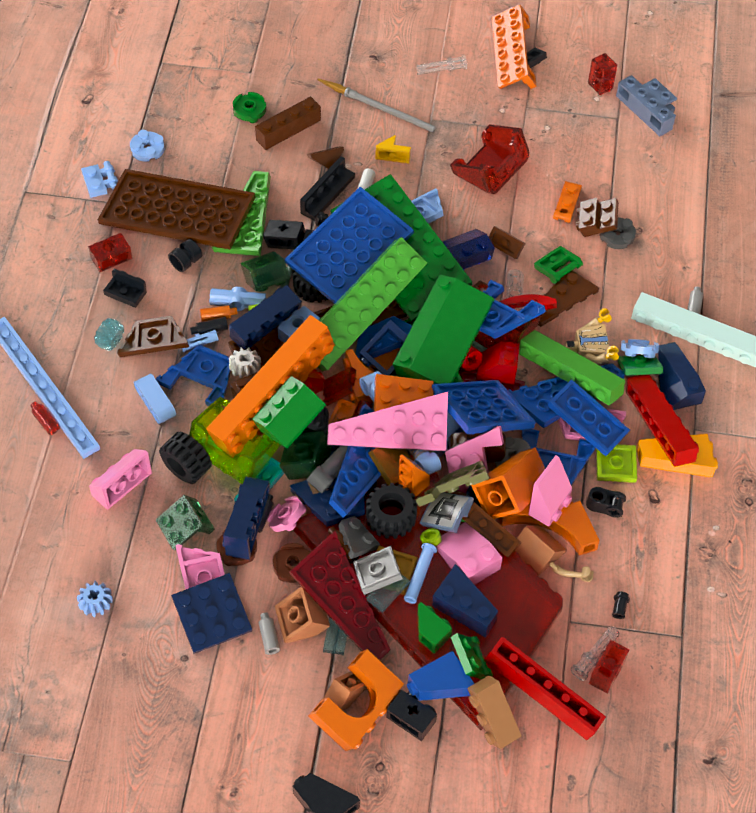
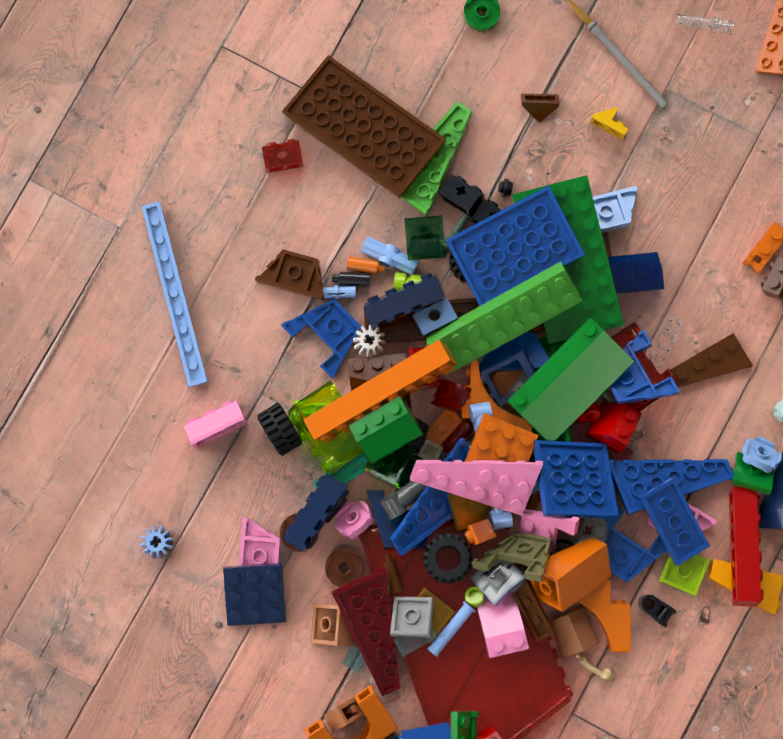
camera: 25 degrees right, 25 degrees up
(44, 418) = (166, 330): clear red cylinder -> none
(94, 180) = (294, 56): light blue plate -> none
(109, 334) = (251, 259): clear light blue gear -> none
(125, 288) = (284, 207): black bracket -> none
(144, 138) = (356, 19): light blue plate -> none
(154, 398) = (274, 345): light blue beam -> none
(183, 521) = (260, 490): clear green bracket -> none
(184, 255) = (354, 186): black wheel -> none
(268, 634) = (298, 631): light grey cylinder -> none
(288, 123) = (514, 50): reddish brown brick -> none
(326, 189) = (524, 150): black fence -> none
(357, 537) = (406, 574): dark grey wing -> none
(367, 178) = (566, 155): white cylinder -> none
(432, 630) = (439, 690): green slope -> none
(465, 603) = (479, 675): dark blue wedge -> none
(496, 161) = (710, 170): clear red windscreen -> none
(506, 243) = (680, 279): reddish brown plate -> none
(522, 300) = (685, 371): red slope -> none
(550, 493) = (600, 599): bright pink slope -> none
(554, 260) = (722, 318): green plate -> none
(570, 365) = (682, 457): bright green brick -> none
(592, 341) = (717, 431): tan torso -> none
(621, 600) = (624, 717): black pin -> none

